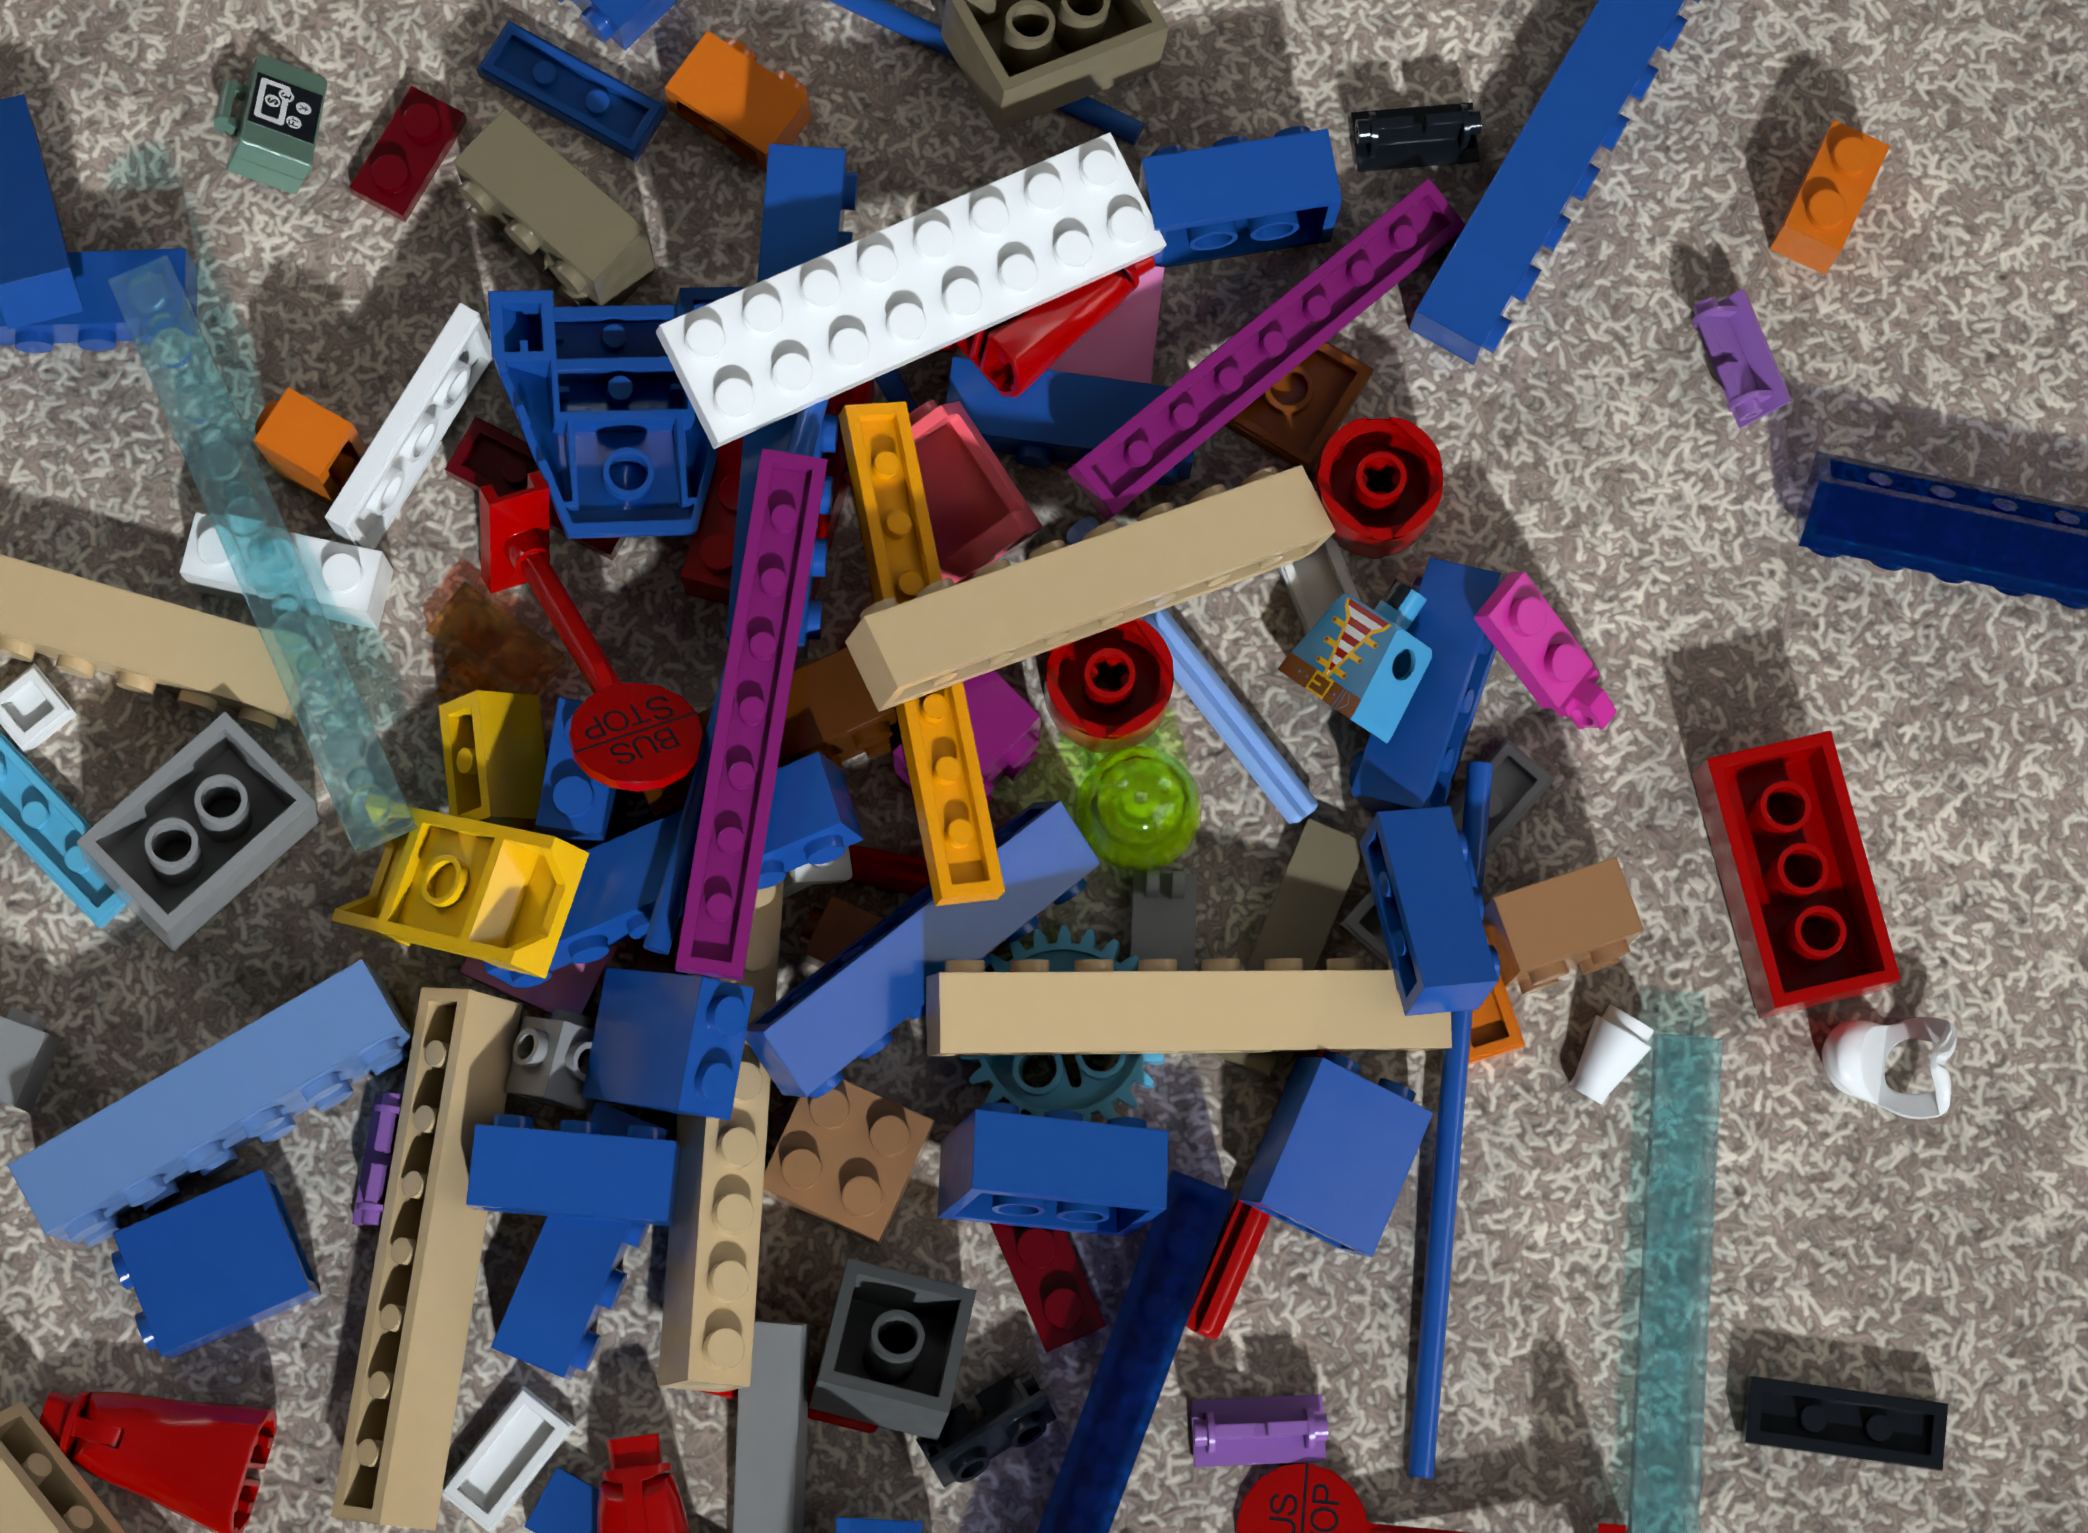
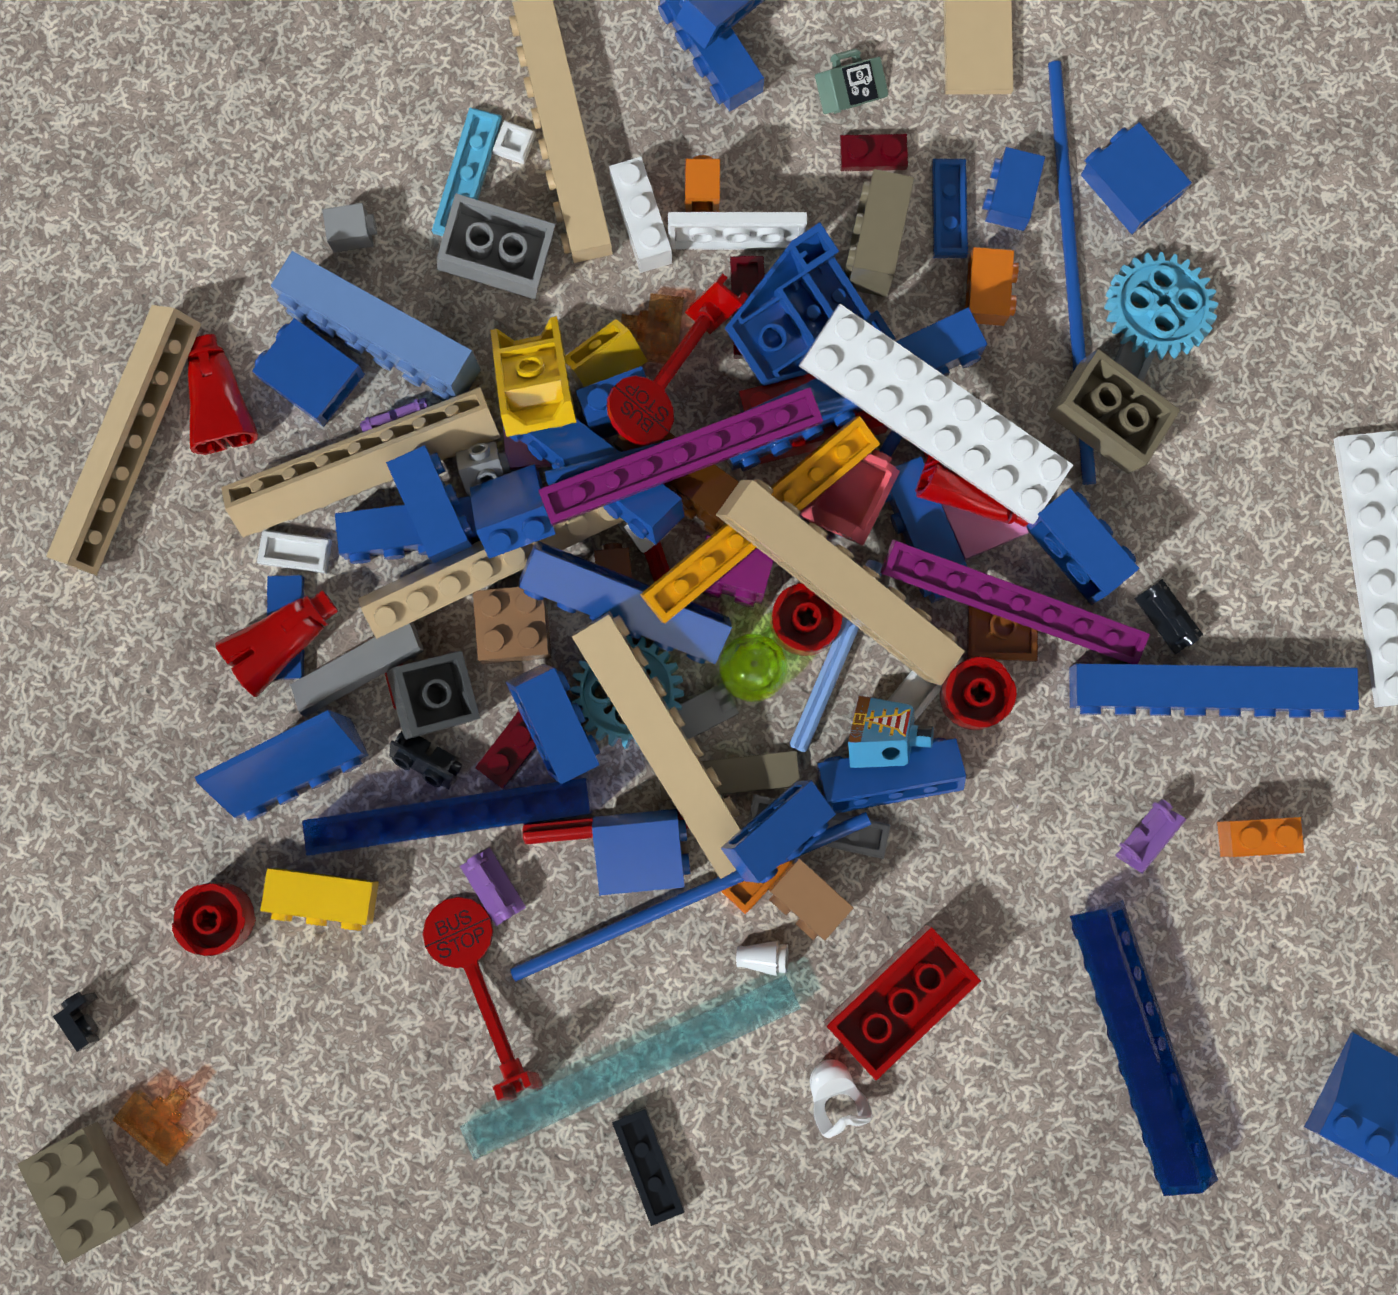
camera: 65 degrees right, 5 degrees up
(263, 555) = (636, 195): clear light blue plate -> none
(1544, 653) = (940, 818): dark pink hinge -> none

